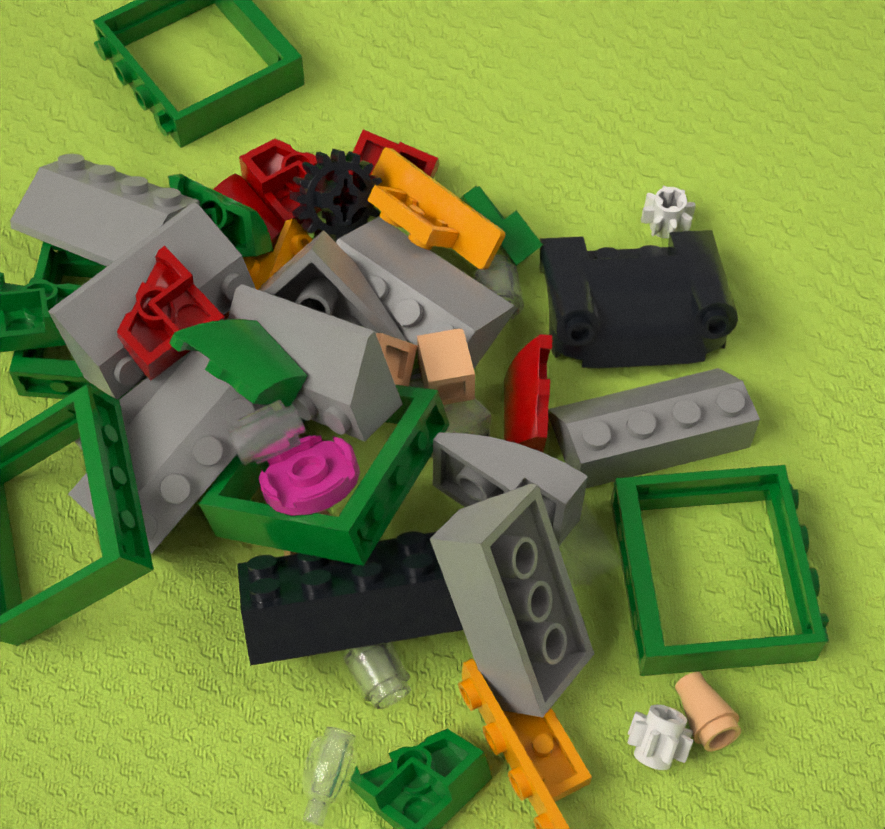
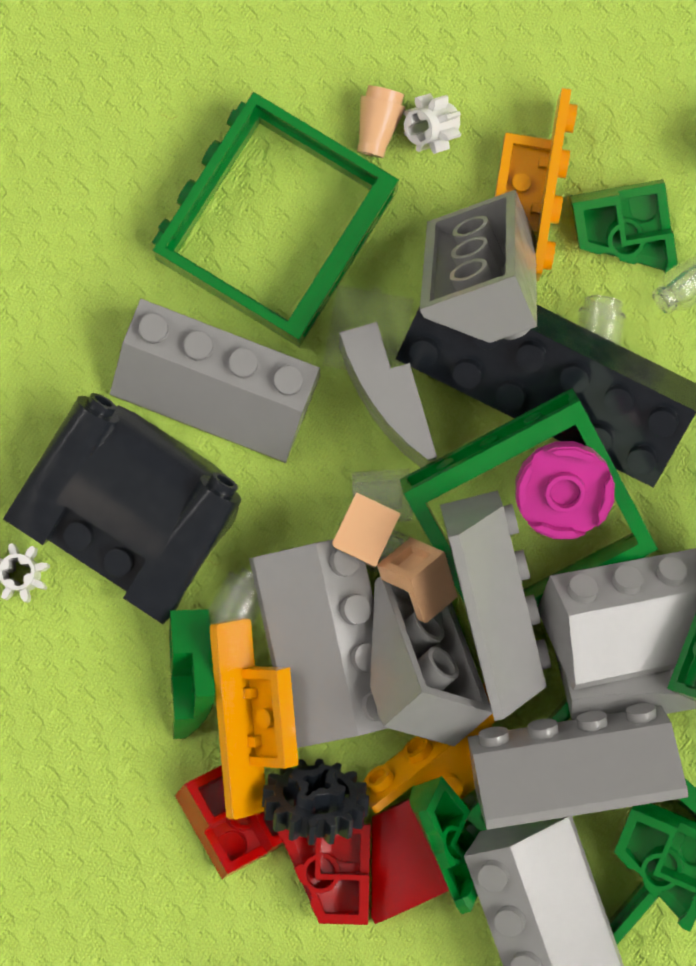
camera: 145 degrees left, 25 degrees up
(163, 307) = (584, 726): red slope -> none
(245, 359) = (552, 625): green slope -> none
(266, 432) = (577, 547): clear brick -> none
(528, 395) = (308, 468): red slope -> none

